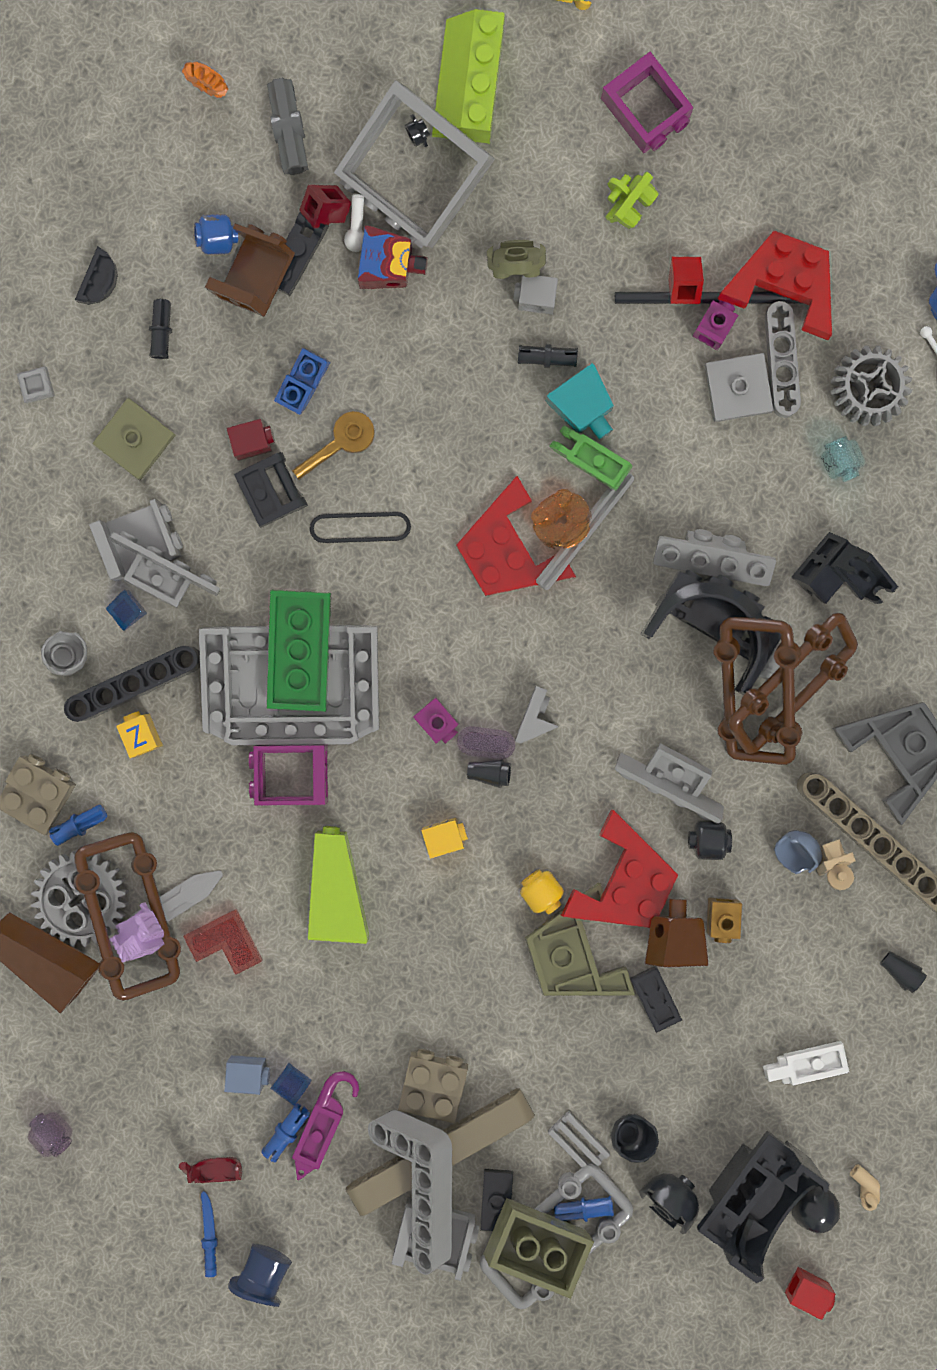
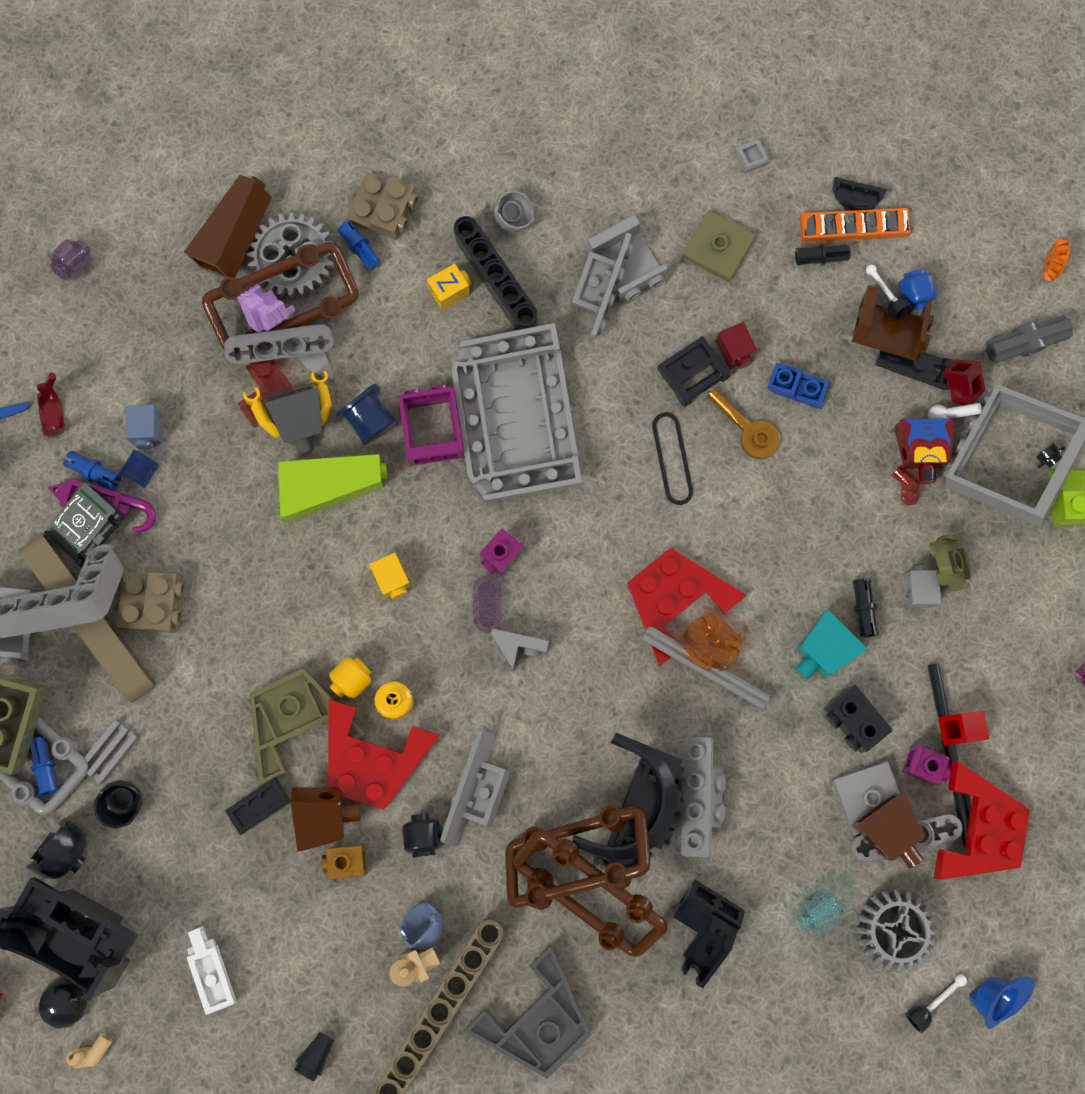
camera: 80 degrees right, 10 degrees down
(125, 610) = (562, 260): clear blue slope -> none
(131, 287) = (854, 224): none -> tile
(182, 923) = (278, 339): none -> light grey beam
(232, 259) = (898, 306): none -> hinge
(256, 915) = (294, 412): none -> dark grey torso
(271, 839) = (368, 415): none -> dark blue piece
(298, 650) = (548, 415): green plate -> none
(342, 1146) = (84, 523): none -> pearl dark grey piece
(426, 285) = (909, 486): none -> clear red arm
(494, 772) = (459, 614): black cone -> none
(496, 1188) = (58, 677): black plate -> none
(570, 840) = (403, 705): none -> yellow head
(593, 458) = (775, 665): bright green hinge -> none
(638, 189) = (1040, 673): lime hips -> none
(660, 385) = (857, 719): none -> black brick
(776, 371) = (893, 830): none -> reddish brown torso

